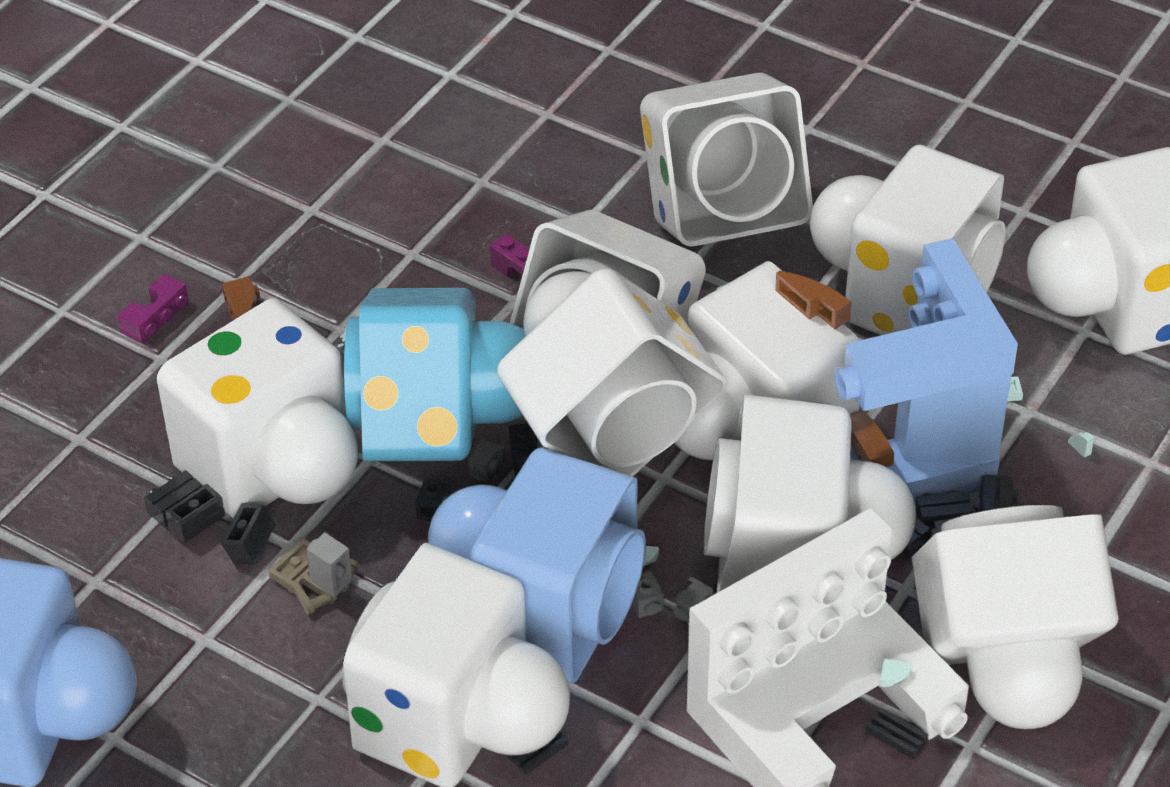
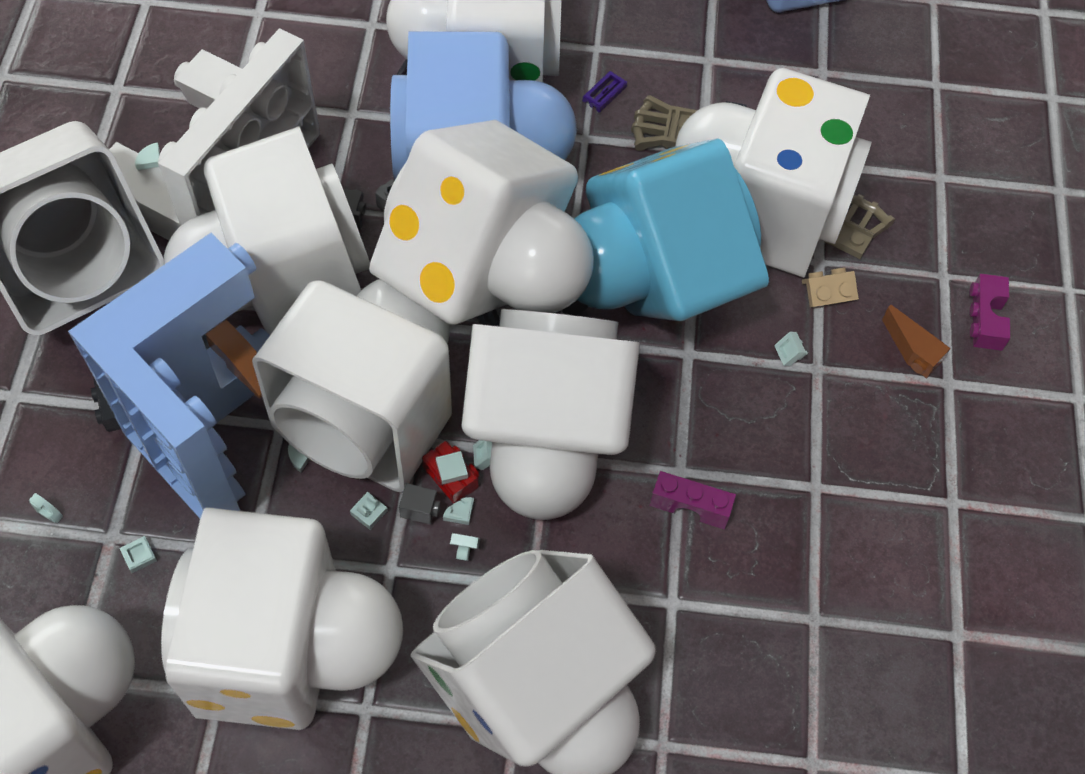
camera: 150 degrees right, 15 degrees up
(329, 564) = (647, 104): light grey brick -> none
(337, 649) = (603, 99): none -> dark purple tile
(813, 298) = (315, 367): dark orange slope -> none

